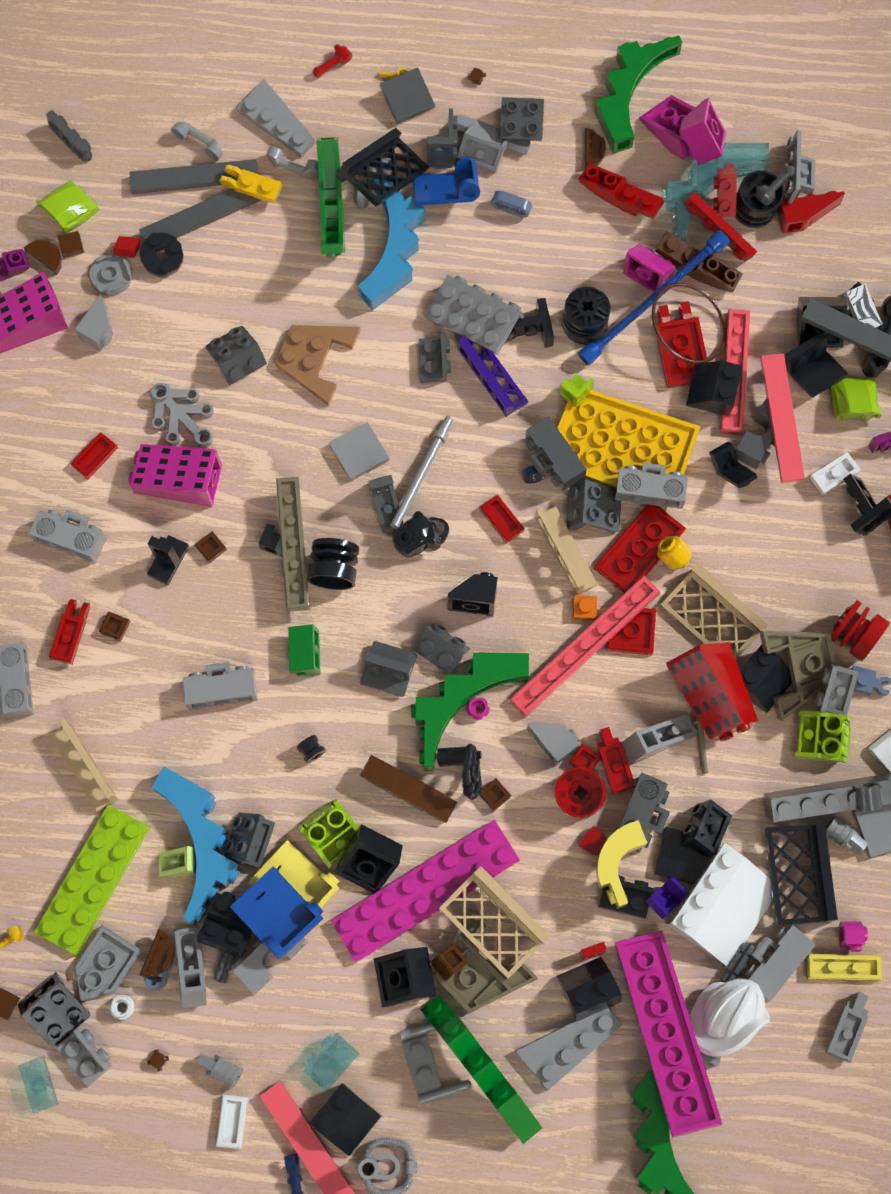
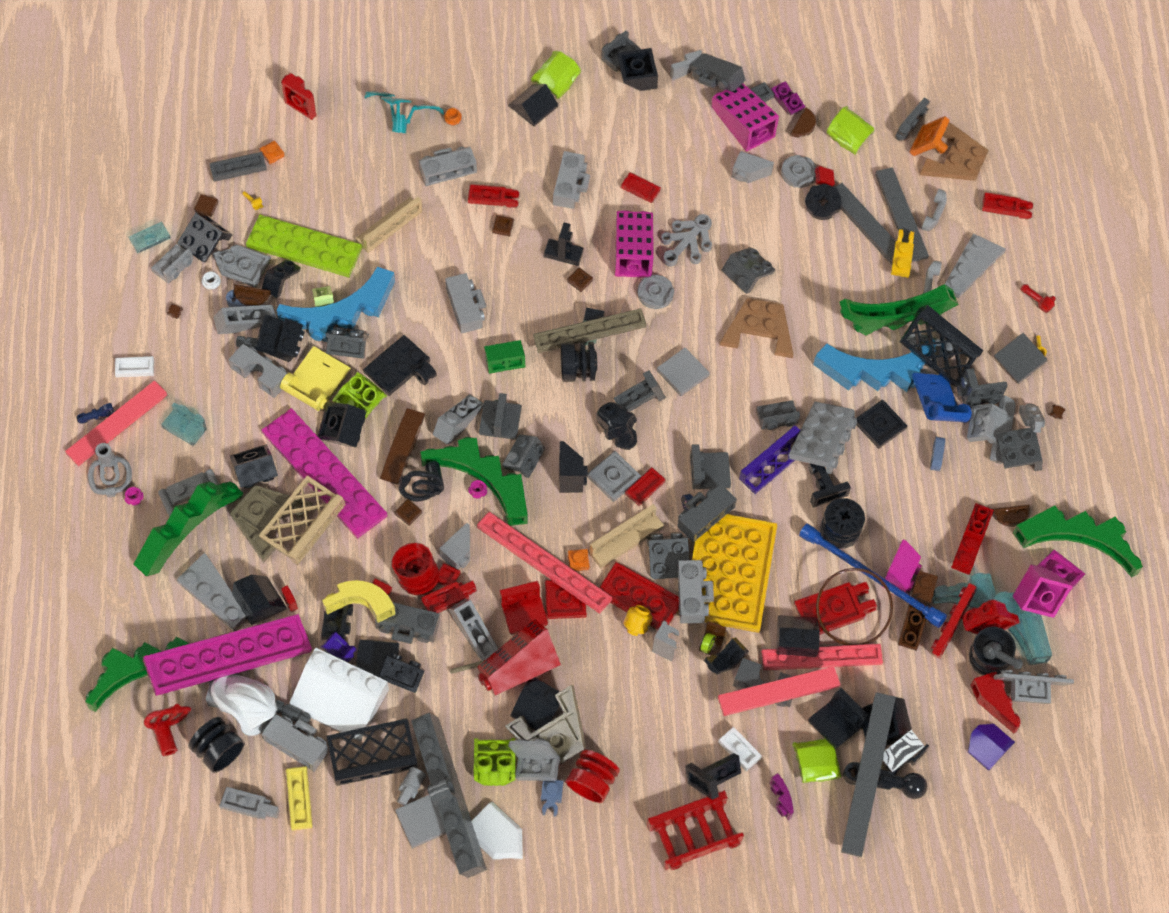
camera: 75 degrees right, 10 degrees down
(70, 244) = (818, 139): reddish brown tile -> none
(100, 120) = (930, 137): none -> orange tile
(131, 95) = (963, 159): none -> medium nougat wing
(135, 914) = (276, 276): none -> black bracket
(206, 66) = (1007, 205): none -> red hinge
(221, 1070) = (170, 352): light grey hinge -> none
(244, 463) = (655, 292): none -> light grey tile
(277, 913) = (288, 366): blue door -> none
(290, 783) = (396, 365): none -> black plate
(345, 1119) = (142, 439): black slope -> none
(380, 718) = (456, 419): none -> light grey slope
(429, 1137) = (133, 491): none -> dark pink plate
(439, 438) = (707, 428): light grey bar -> none
(449, 962) = (268, 493): reddish brown slope -> none
(462, 254) = (880, 424): none -> black tile
(483, 550) = (613, 476): none -> light grey tile
(487, 98) = (1032, 417): none -> light grey hinge
(493, 444) = (709, 469): none -> dark grey bracket
(576, 389) = (769, 523): lime panel -> none
(642, 677) = (522, 605): none -> red bracket
(696, 474) = (717, 630): none -> reddish brown bracket
(705, 528) = (663, 644): none -> light grey hinge
(710, 483) = (708, 643): none -> lime tile
(722, 596) = (605, 667): tan fence -> none
(745, 1123) = (162, 727): none -> red piece
(776, 1059) = (216, 744): none -> black wheel
(852, 935) = (325, 799): dark pink plate -> none
(854, 228) = (988, 744): none -> slope

